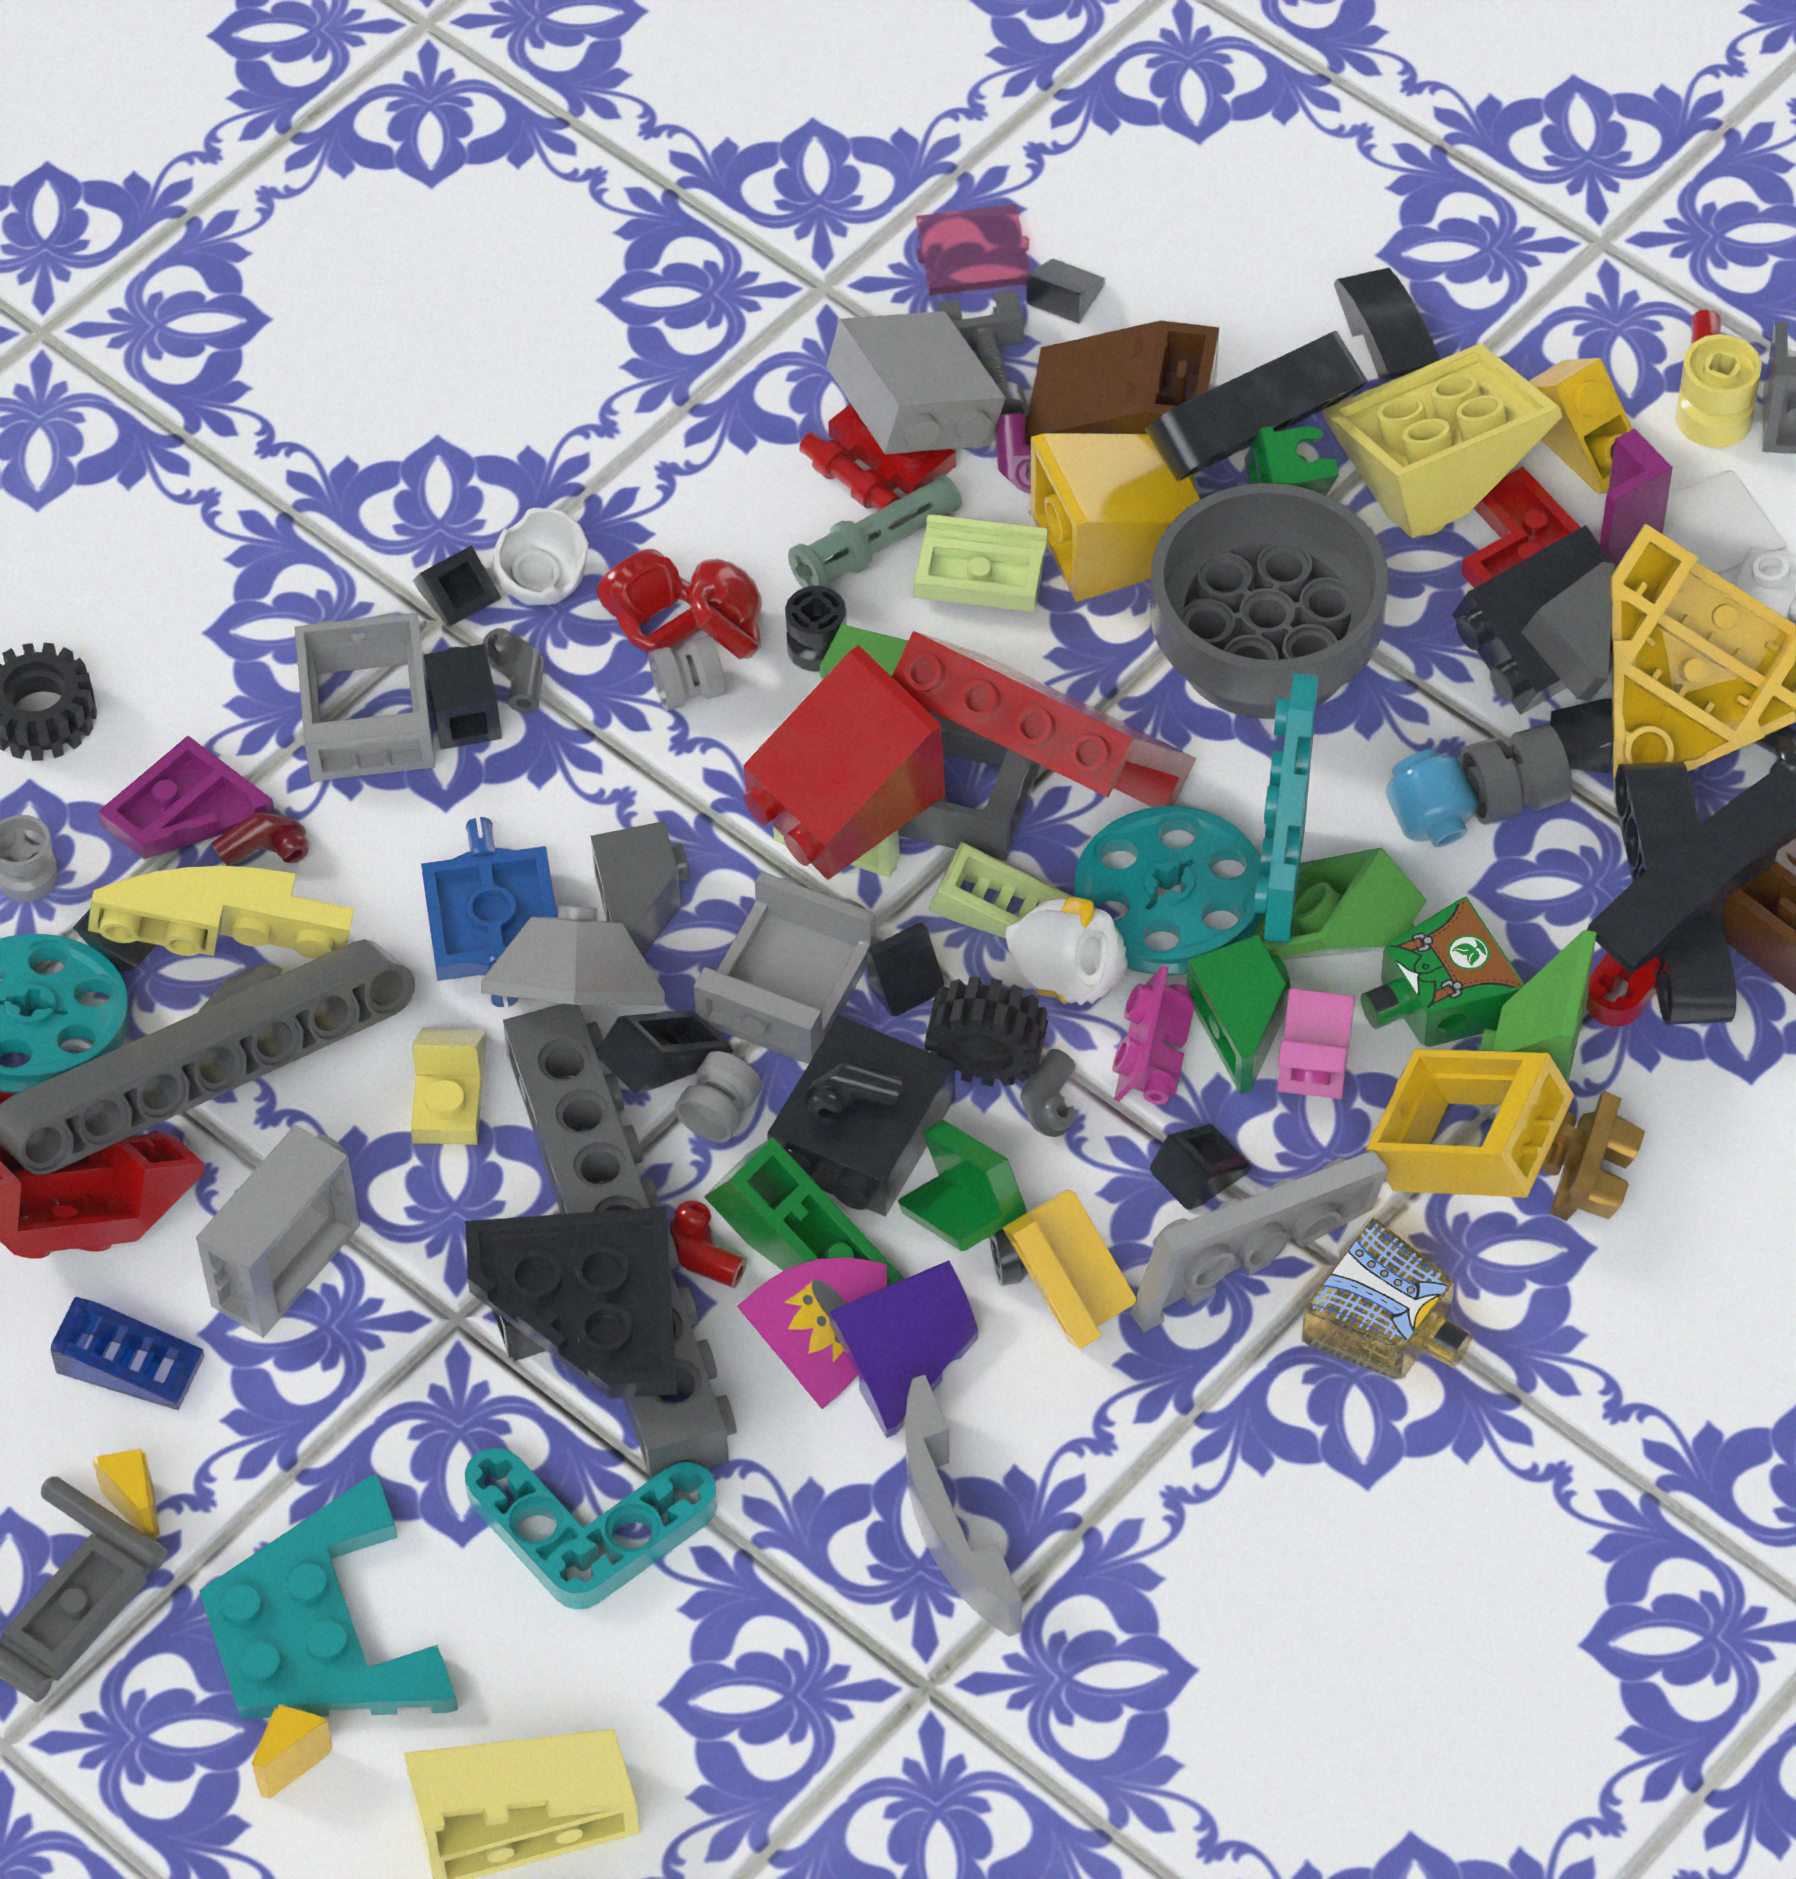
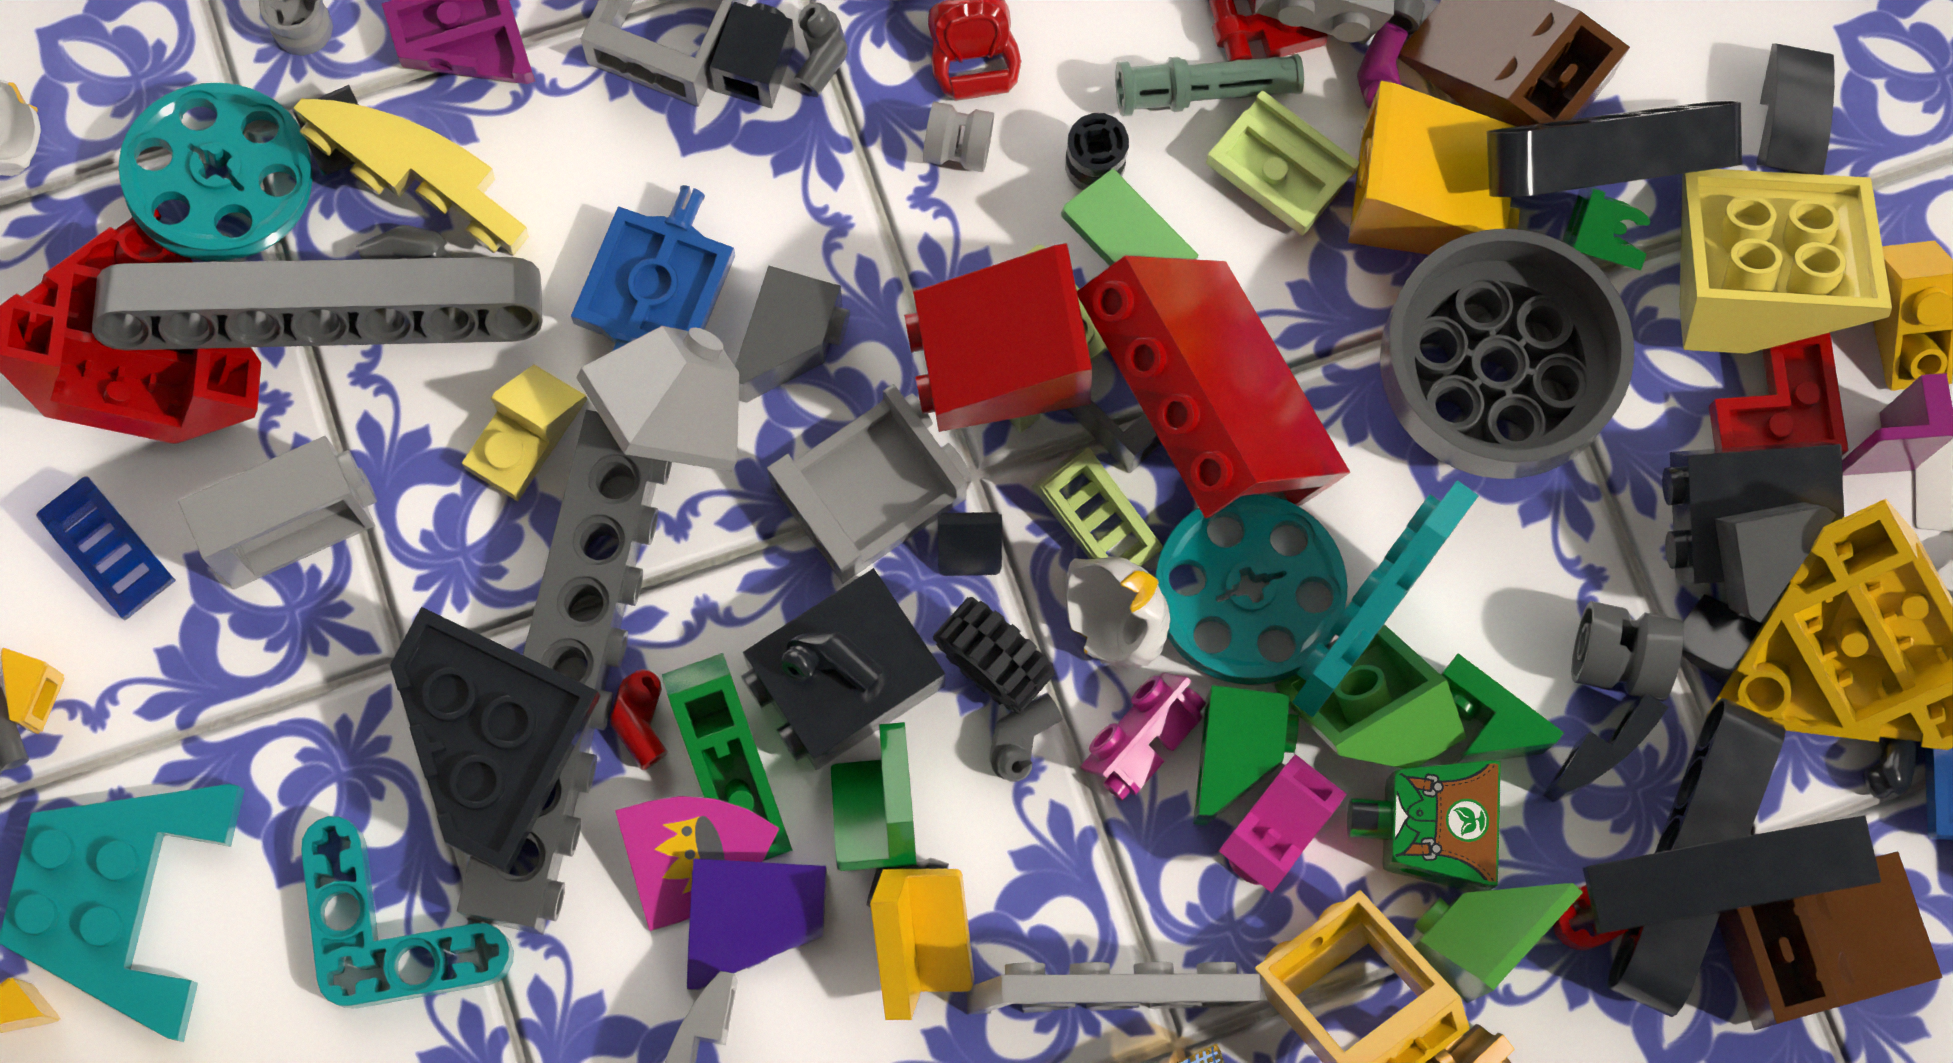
camera: 25 degrees right, 20 degrees up
(264, 832) = (510, 96): dark red arm -> none
(658, 1048) = (676, 514): black slope -> none
(719, 1095) = (746, 572): light grey wheel -> none
(726, 606) = (1037, 84): red piece -> none
(1198, 1165) = (1112, 878): black slope -> none
(1431, 798) = (1537, 631): dark azure head -> none
(1448, 870) = (1508, 723): none -> green slope
(1547, 859) = (1594, 756): none -> black slope

